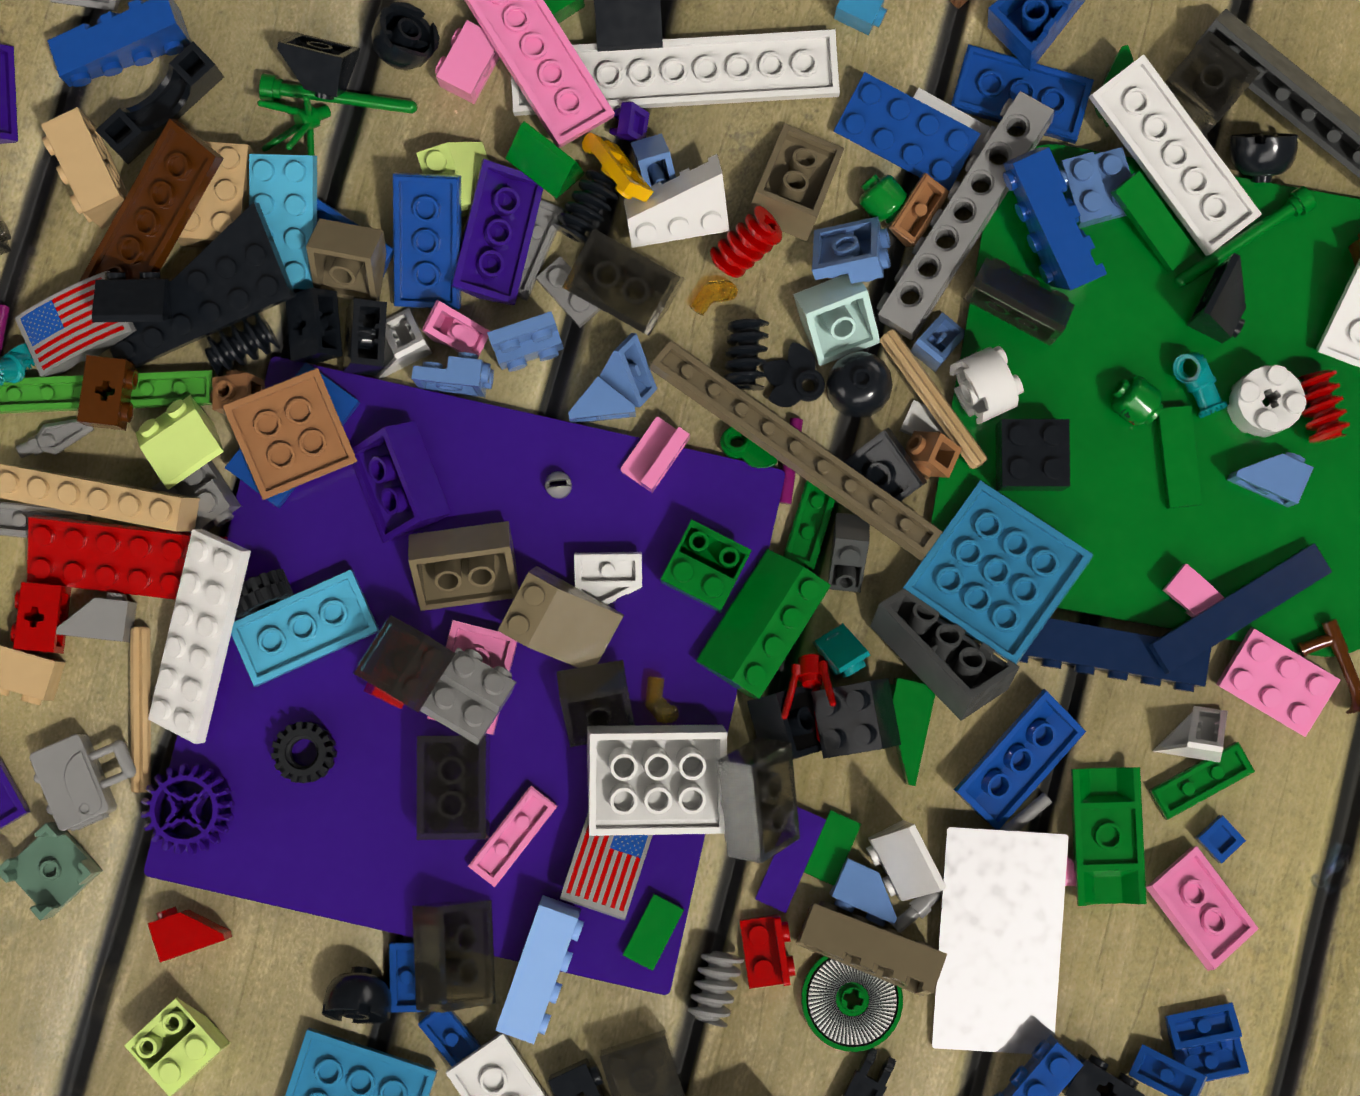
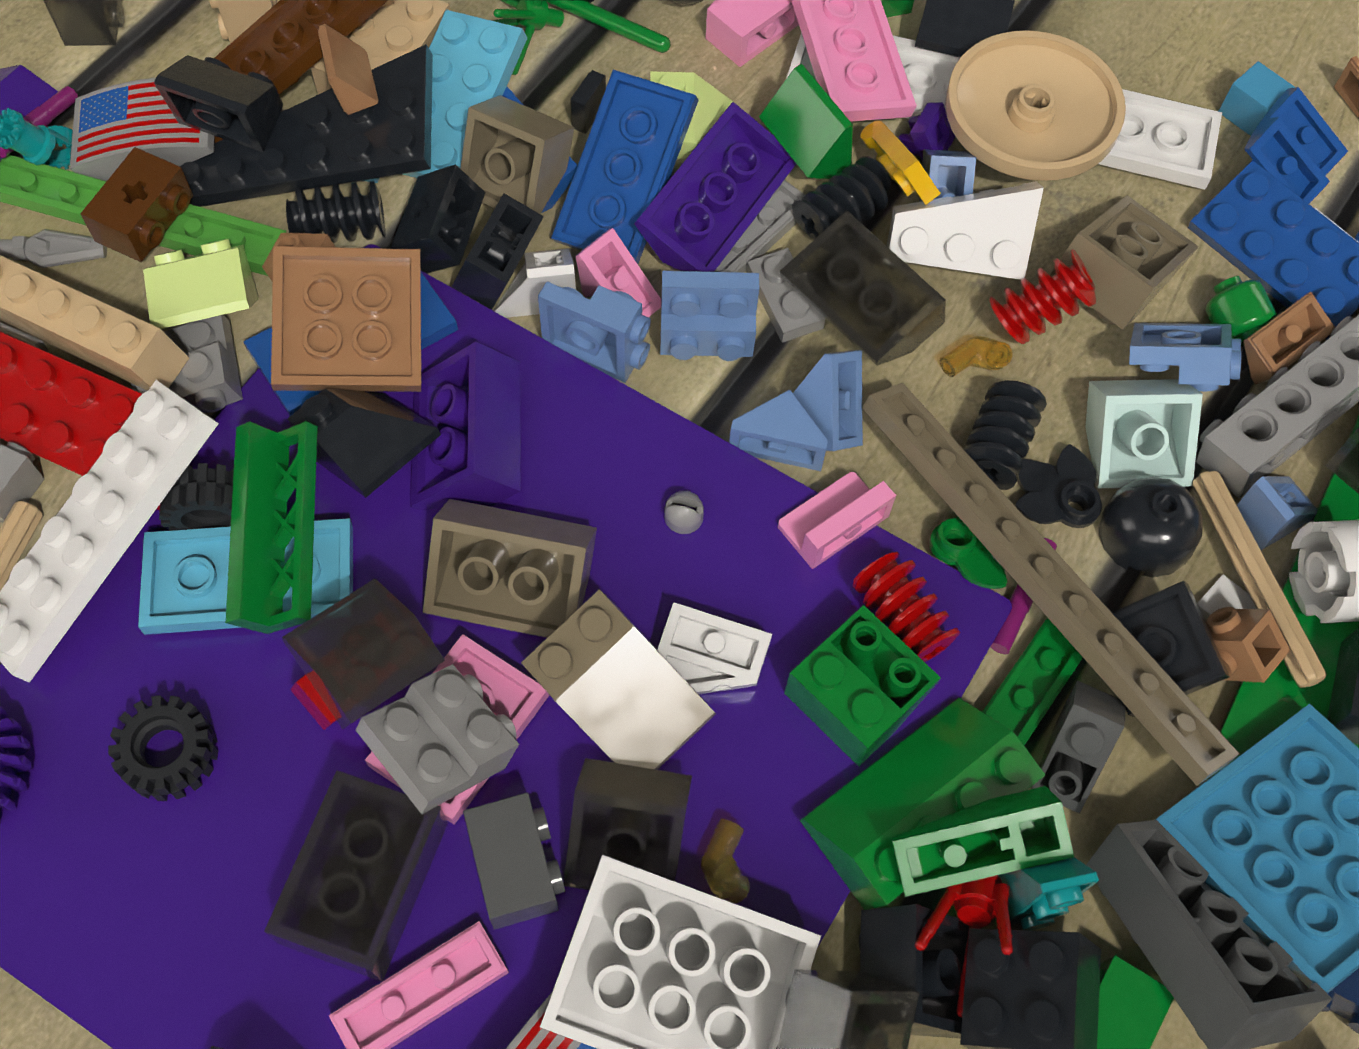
camera: 15 degrees right, 20 degrees down
(208, 244) = (347, 70): none -> medium nougat slope
(305, 601) = (263, 528): none -> green fence
(336, 509) = (364, 435): none -> black slope
(377, 183) = (587, 100): none -> black tile
(536, 744) = (512, 861): none -> dark grey brick
(698, 85) = (1035, 105): none -> tan dish
(718, 506) = (901, 607): none -> red piece
(803, 645) = (984, 841): none -> green slope
(893, 47) = (1296, 145): none -> blue slope

